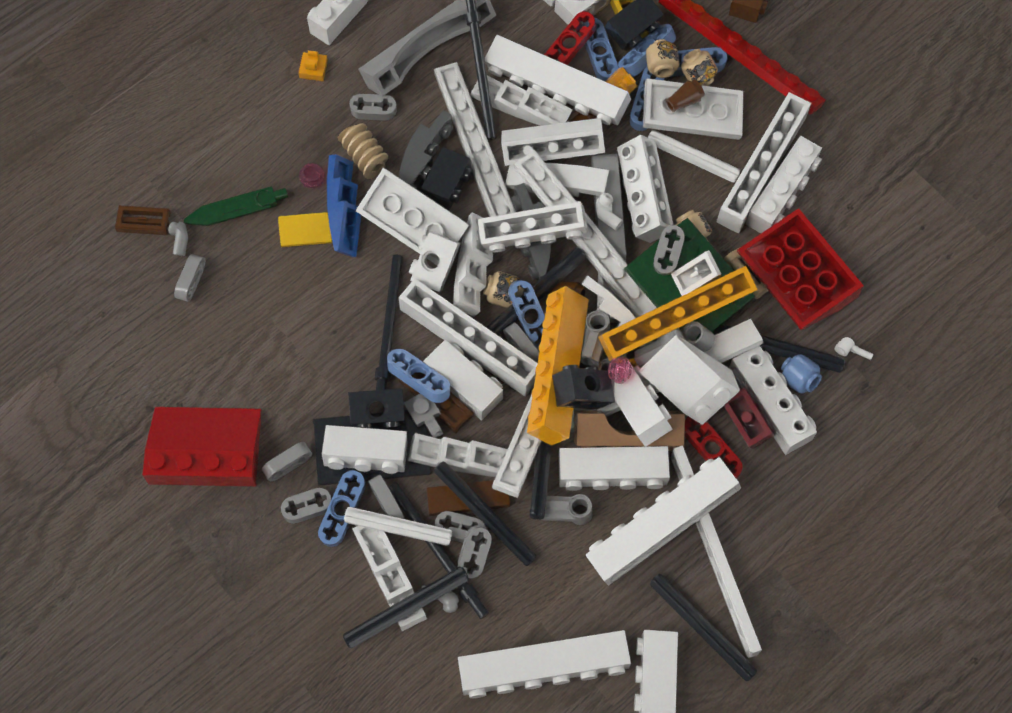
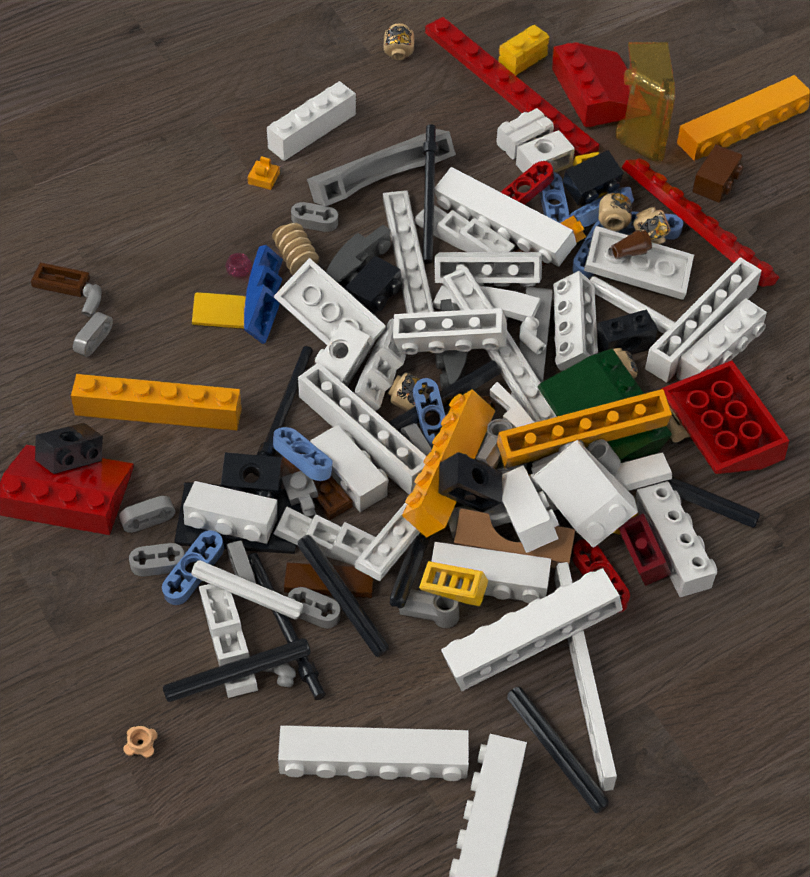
camera: 10 degrees right, 15 degrees down
(198, 409) = (68, 448): none -> black brick
(236, 206) = (156, 282): dark green piece -> none
(268, 342) = (156, 402): none -> light orange brick
(339, 696) = (138, 733): none -> light nougat plate
(480, 554) = (330, 632): light grey beam -> none
(608, 495) = (463, 595): none -> yellow slope
(619, 370) = (512, 470): clear pink plate -> none
(662, 249) = (592, 374): light grey beam -> none
(694, 191) = (629, 332): none -> black brick
(696, 273) = (614, 389): white slope -> none
(801, 373) = (710, 518): medium blue head -> none
(847, 345) = (764, 501): white hand -> none

